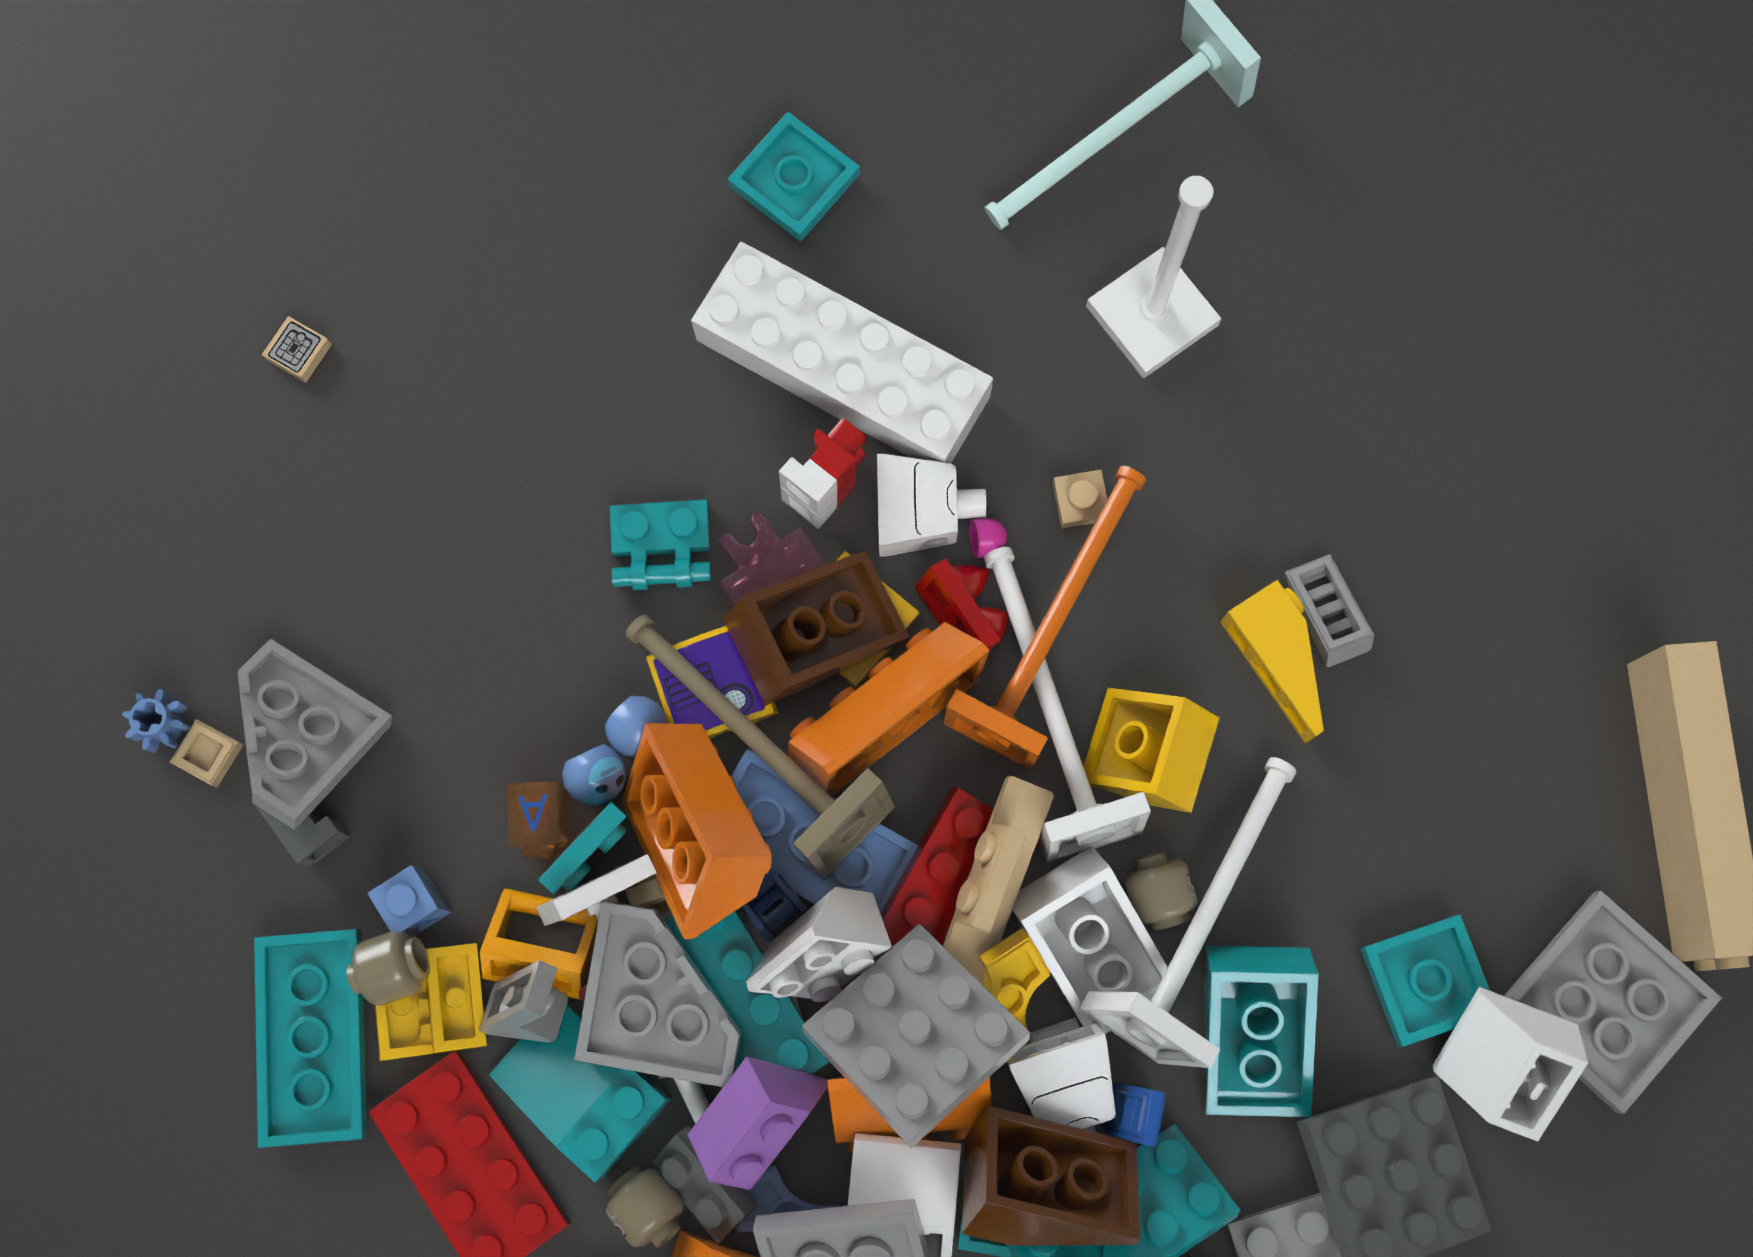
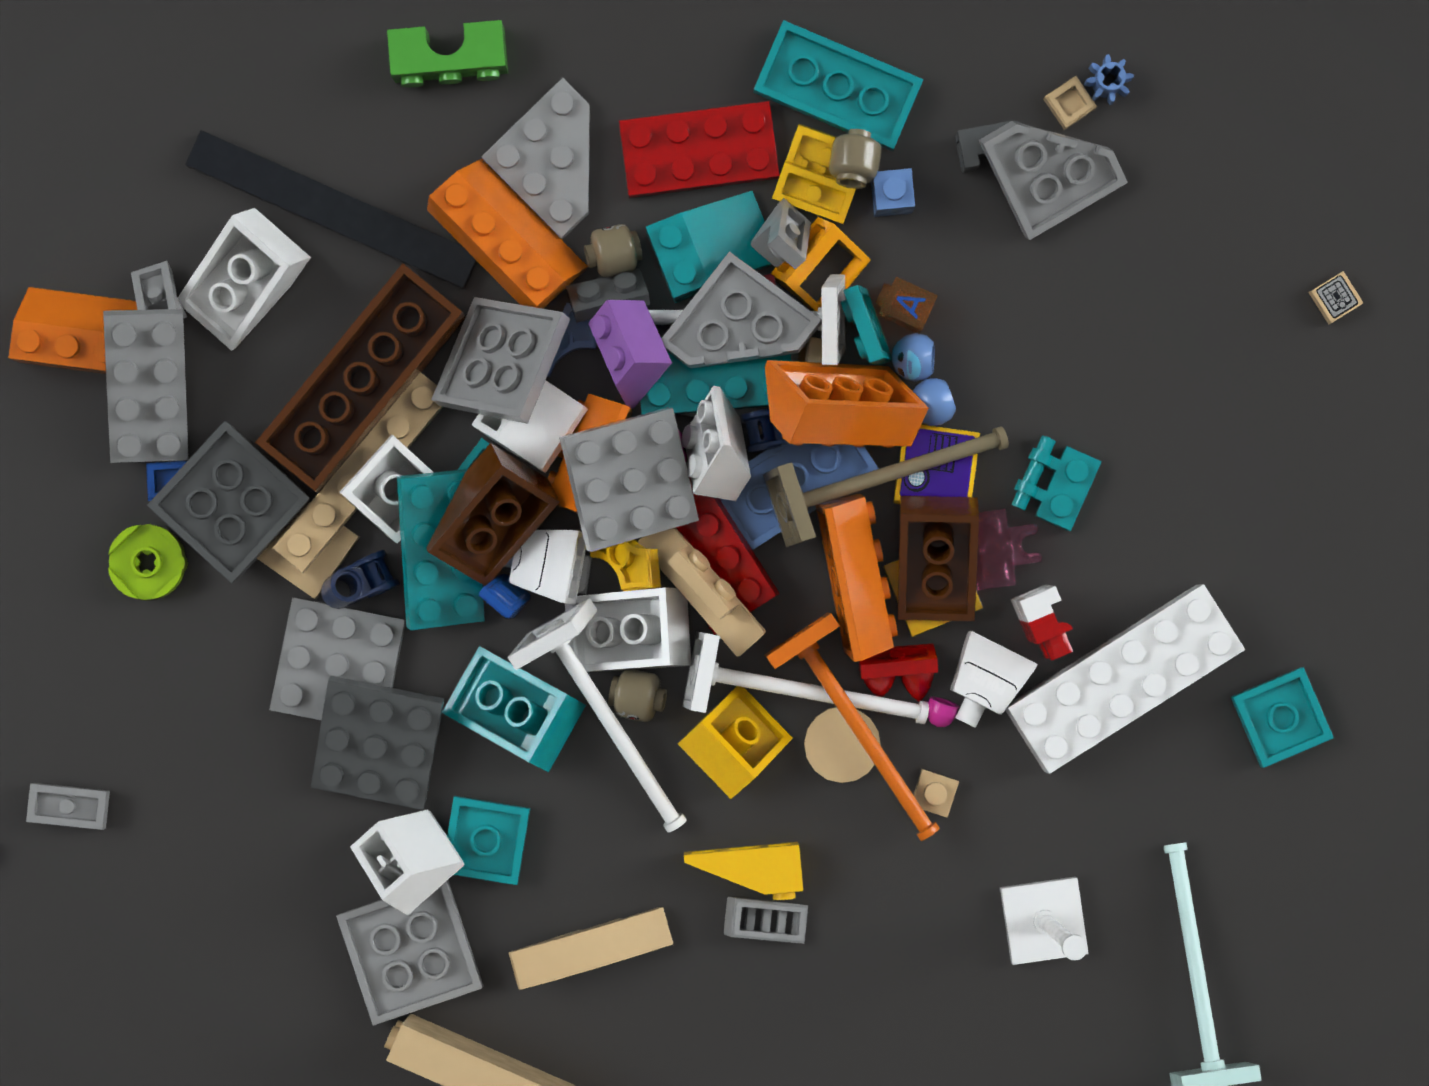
camera: 115 degrees right, 10 degrees up
(1094, 632) = (835, 748): none -> tan tile
(1481, 789) = (590, 948): none -> tan slope

